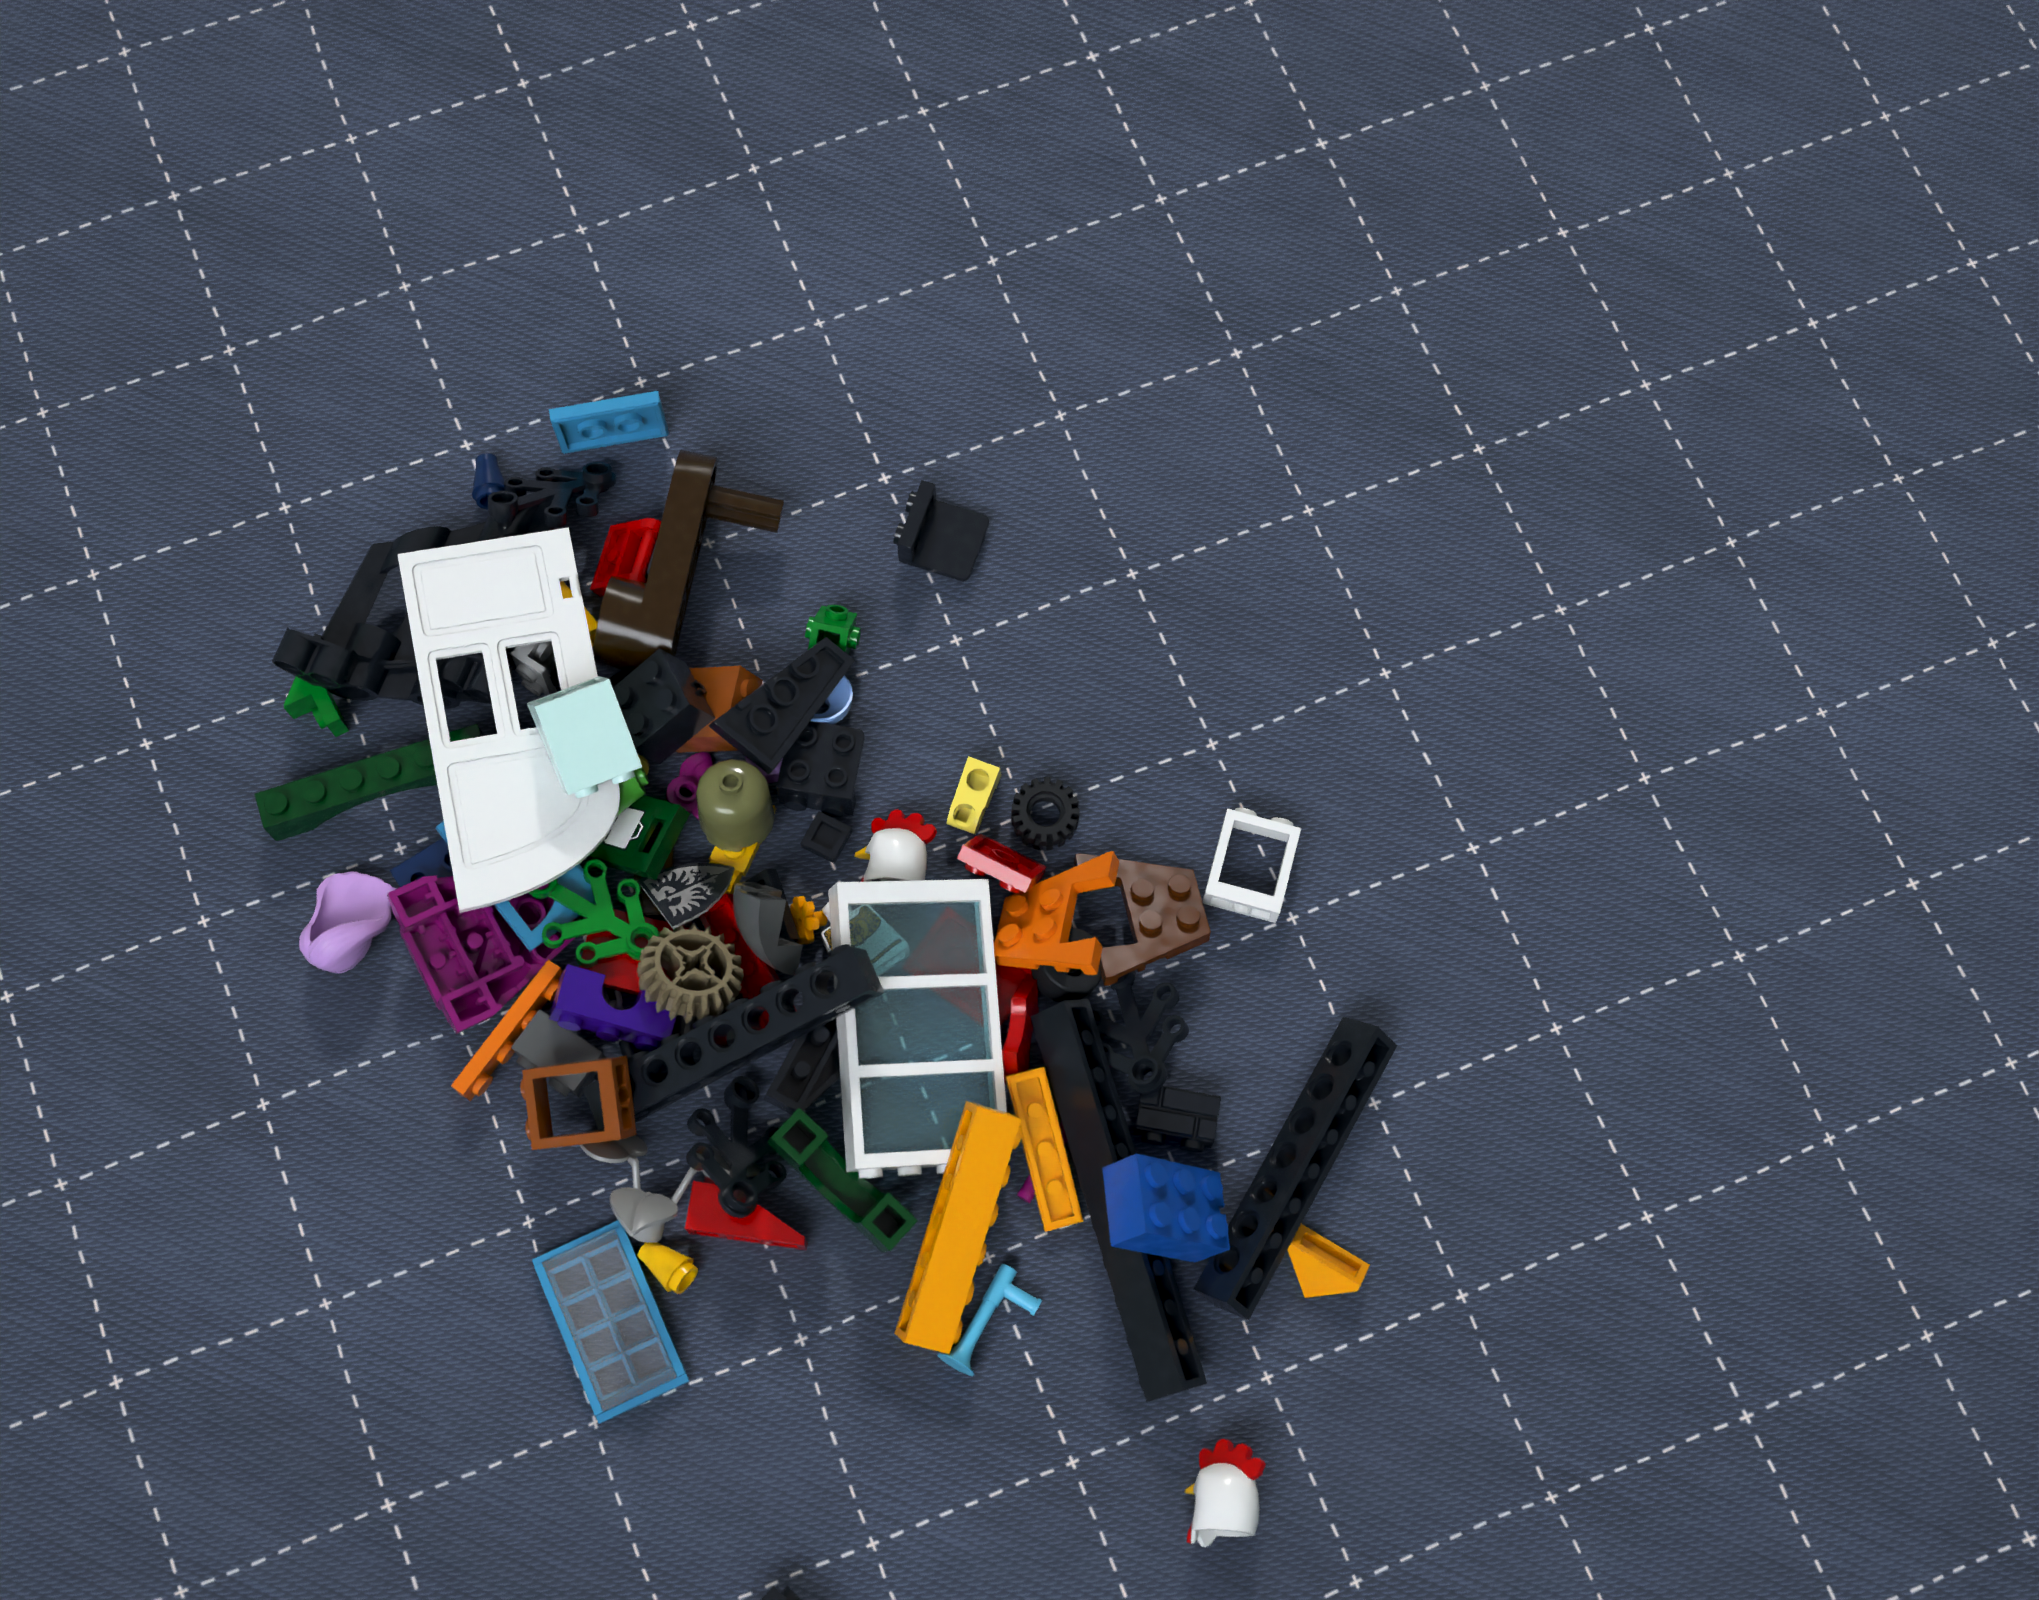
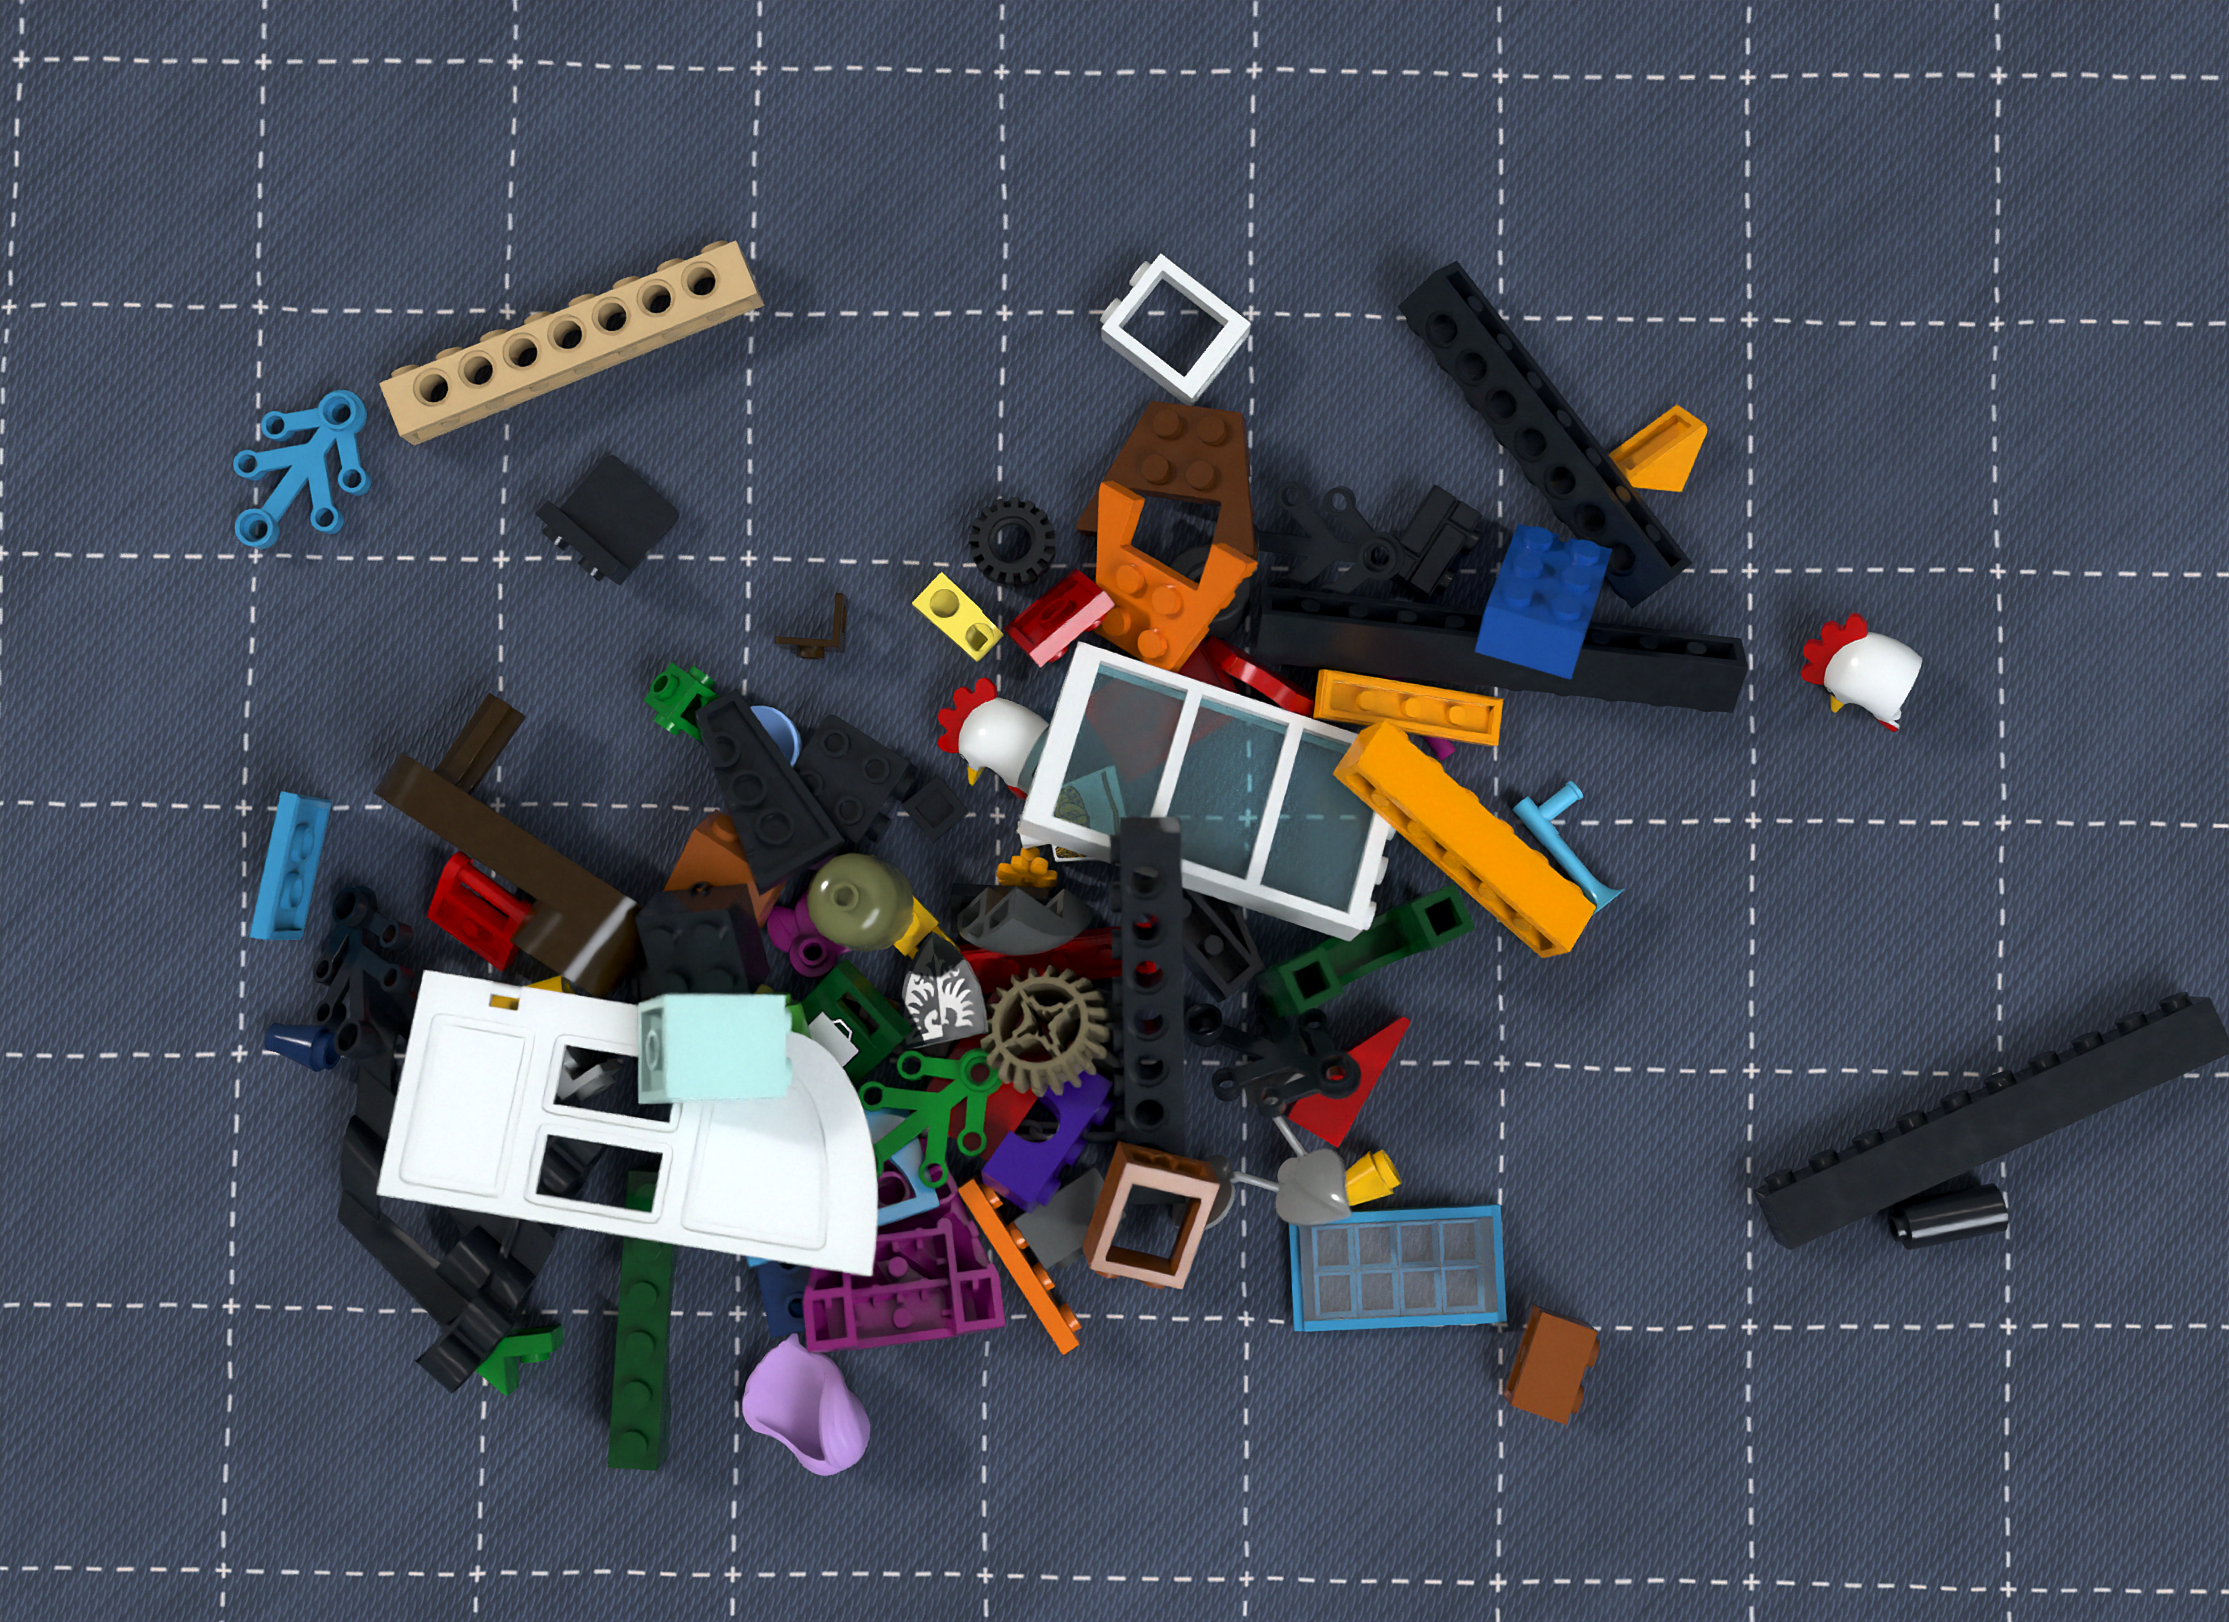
camera: 60 degrees left, 15 degrees up
(576, 1470) = (1552, 1365): none -> dark orange brick
(895, 329) = (306, 463): none -> dark azure plant
(922, 720) = (816, 648): none -> dark brown bracket
(1139, 553) = (411, 386): none -> tan brick

